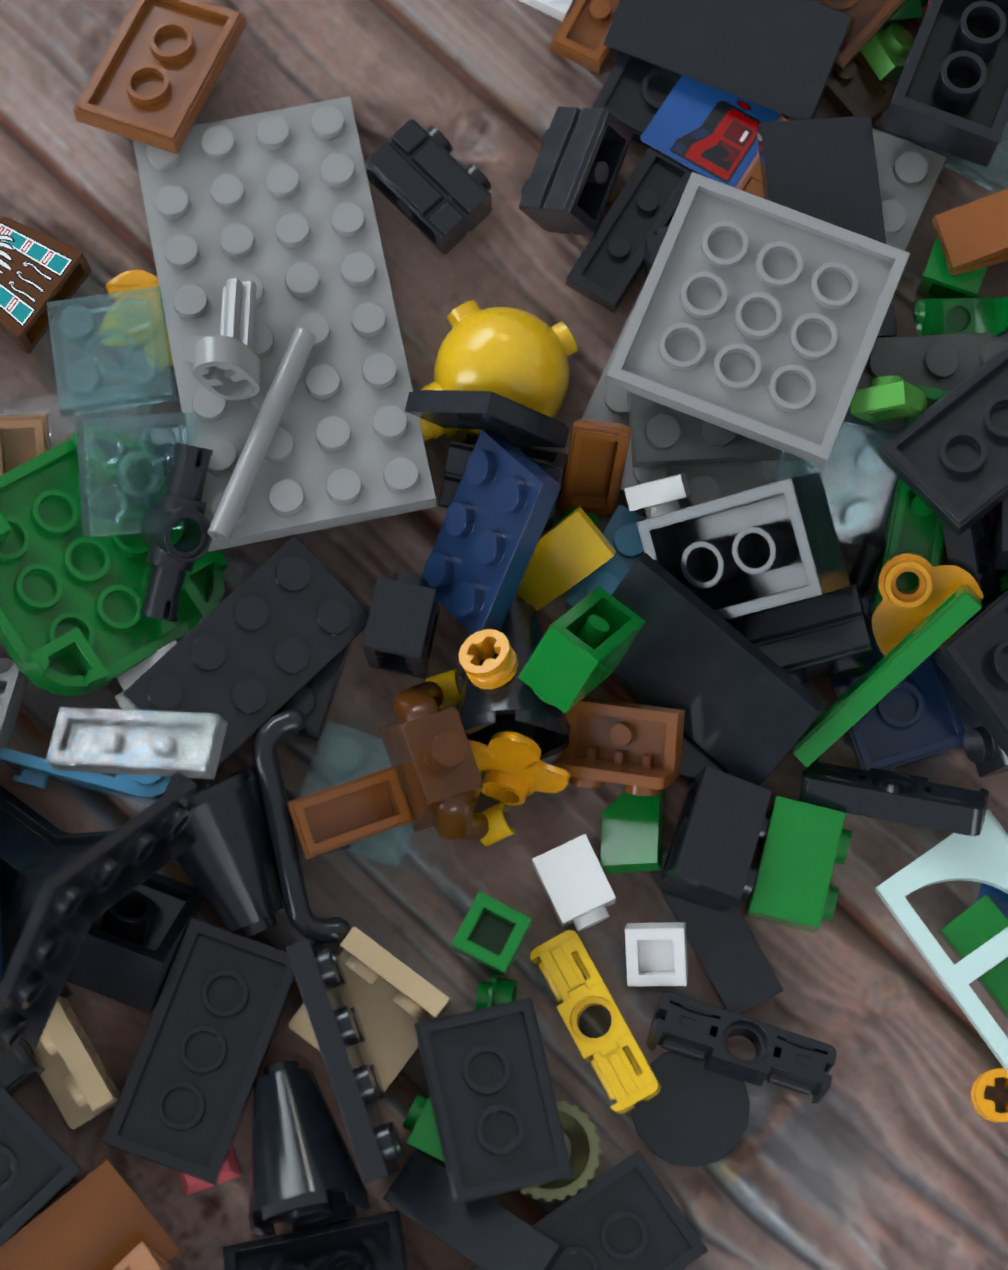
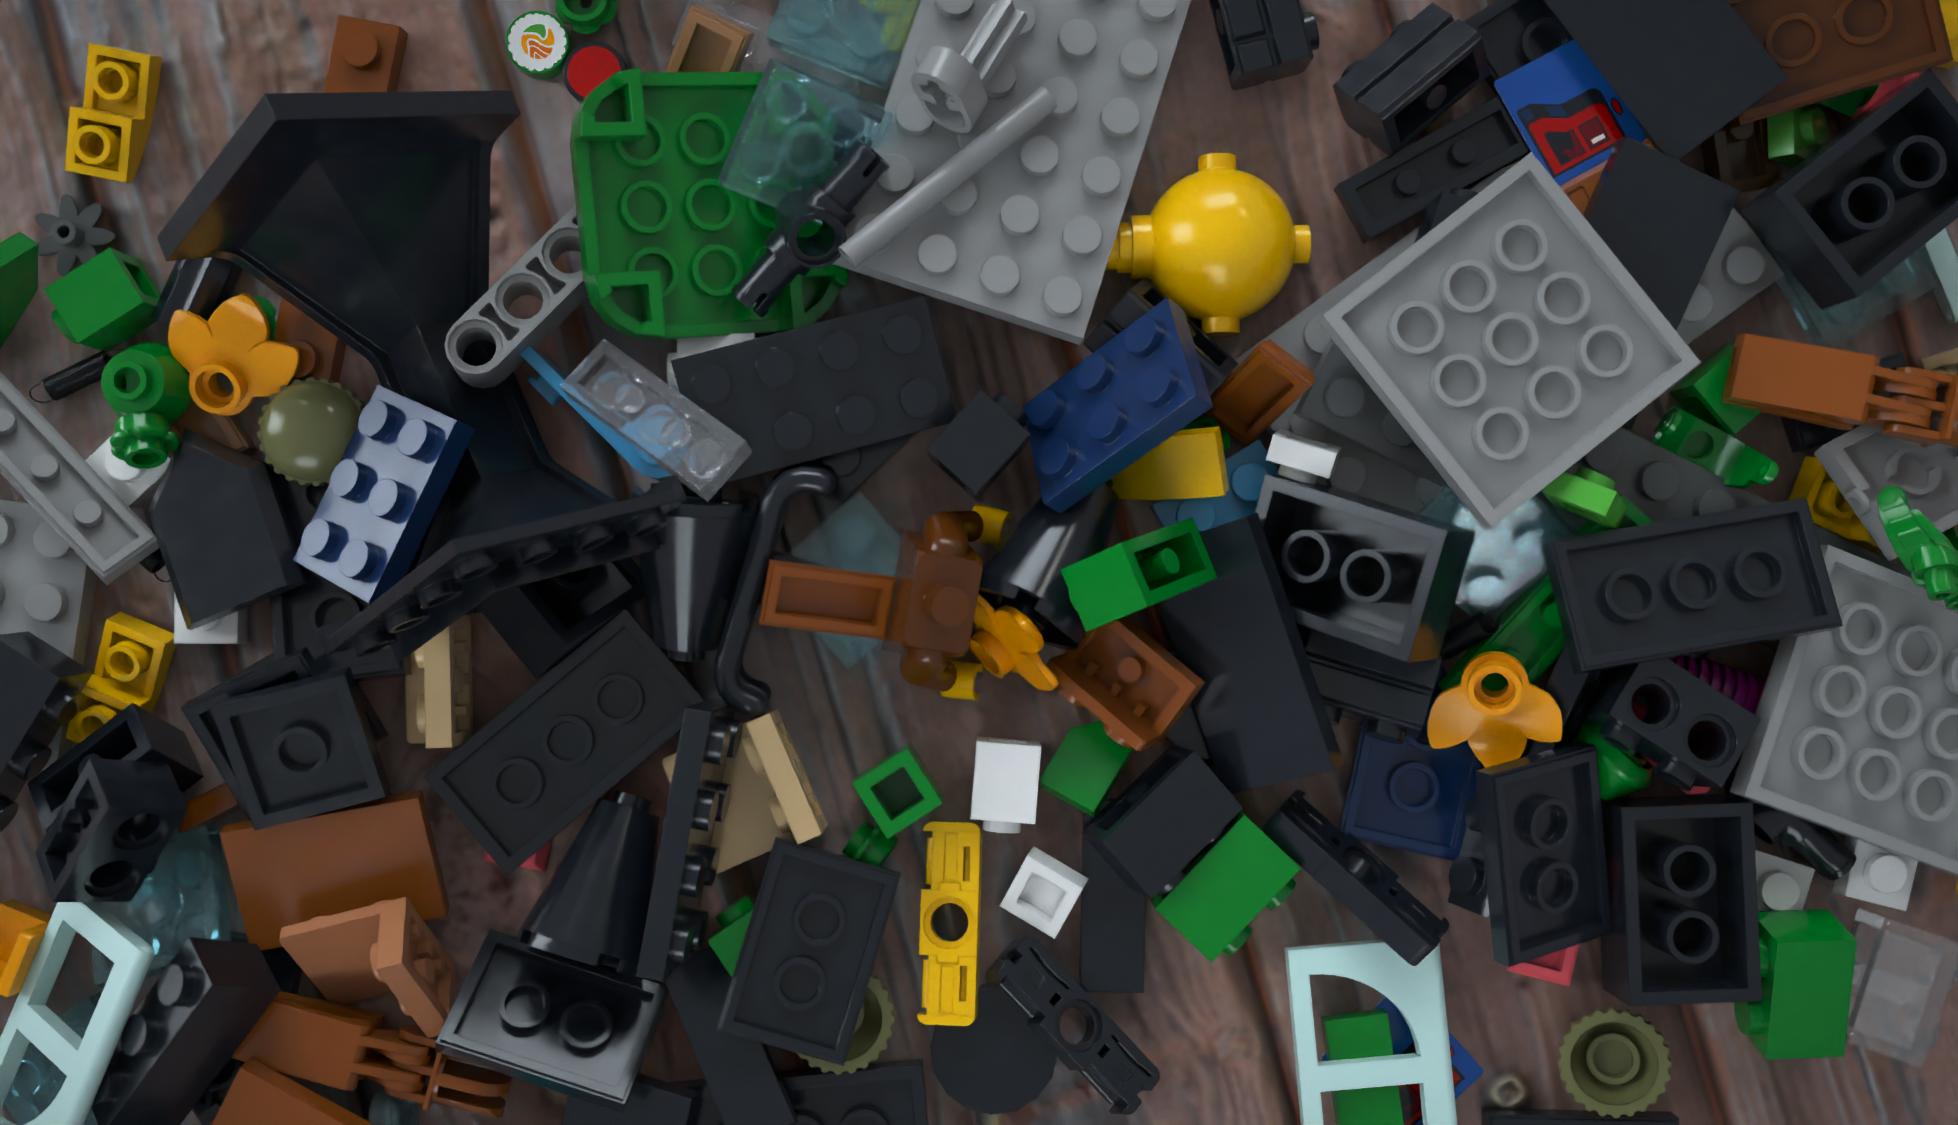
camera: 25 degrees right, 10 degrees up
(483, 646) = (1046, 514): light orange bush -> none
(487, 412) = (1182, 283): black tile -> none
(887, 673) = (1431, 761): green tile -> none

